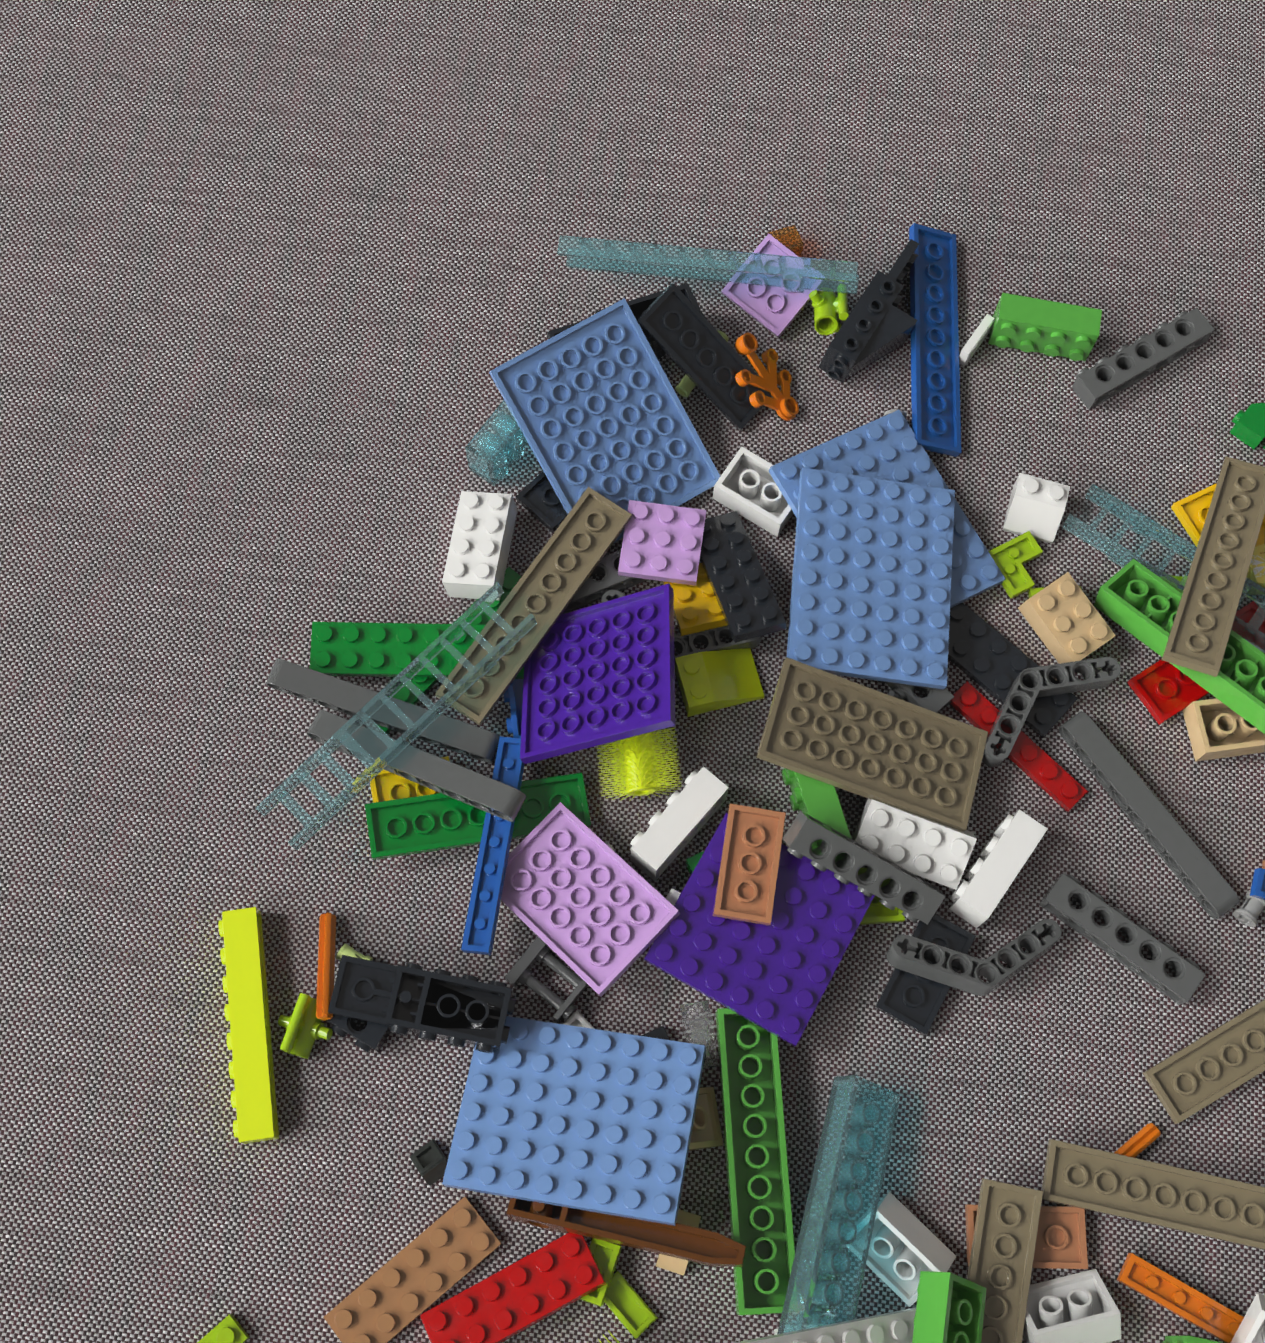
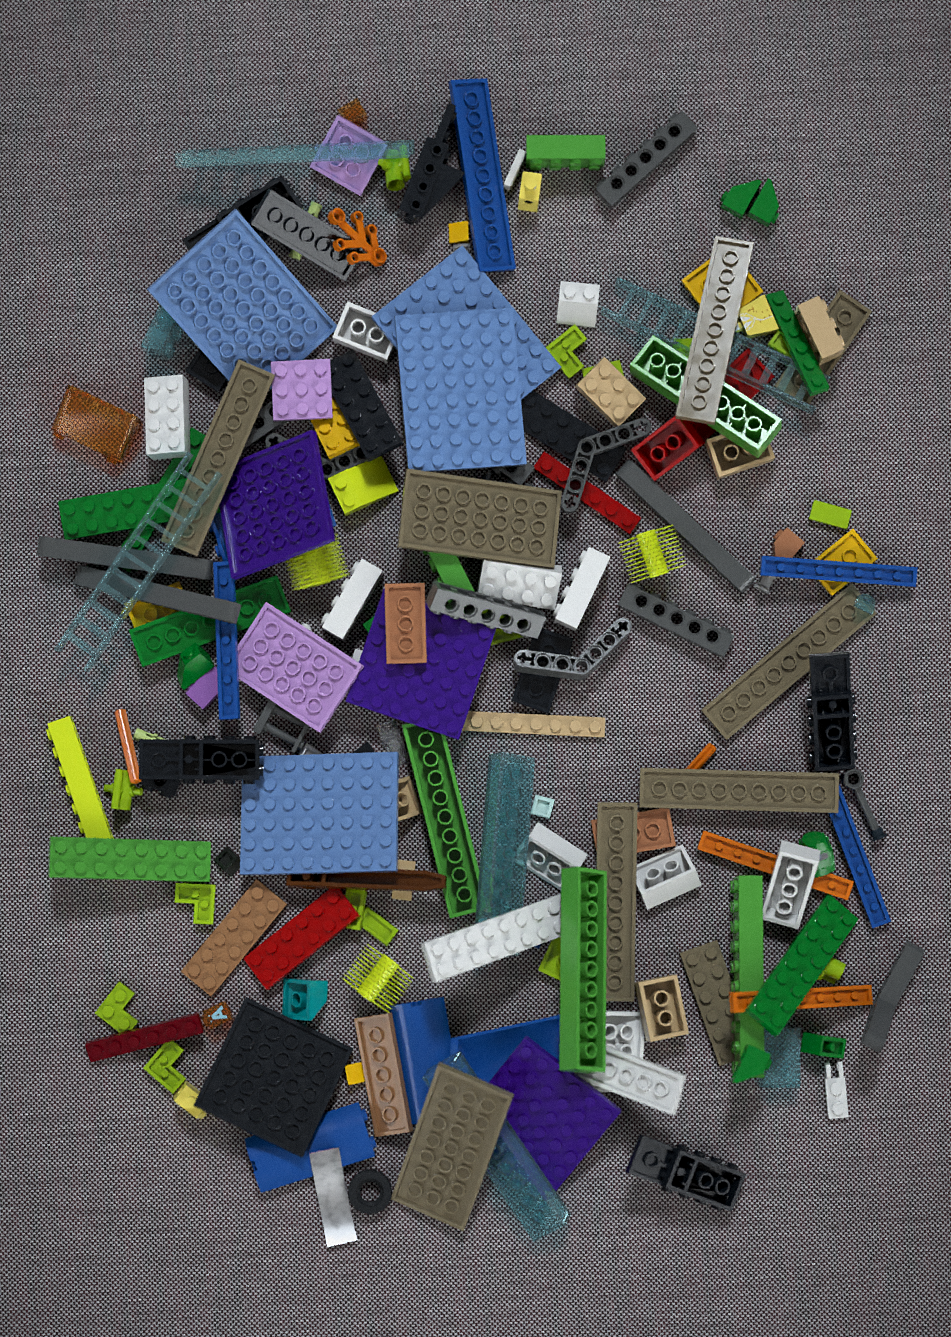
camera: 10 degrees left, 15 degrees up
(286, 1129) = (129, 859): none -> bright green brick
(380, 1207) = (201, 896): none -> lime plate
(387, 537) = (96, 424): none -> clear orange windscreen
(442, 870) = (192, 665): none -> green slope
(451, 907) = (205, 689): none -> medium lavender brick
(894, 398) = (458, 232): none -> yellow slope
(899, 1170) = (542, 806): none -> light aqua tile
(905, 1047) = (535, 724): none -> tan plate
(994, 359) = (529, 191): none -> light yellow torso
(1103, 830) = (652, 553): none -> neon yellow piece
(1138, 701) = (667, 447): none -> red brick

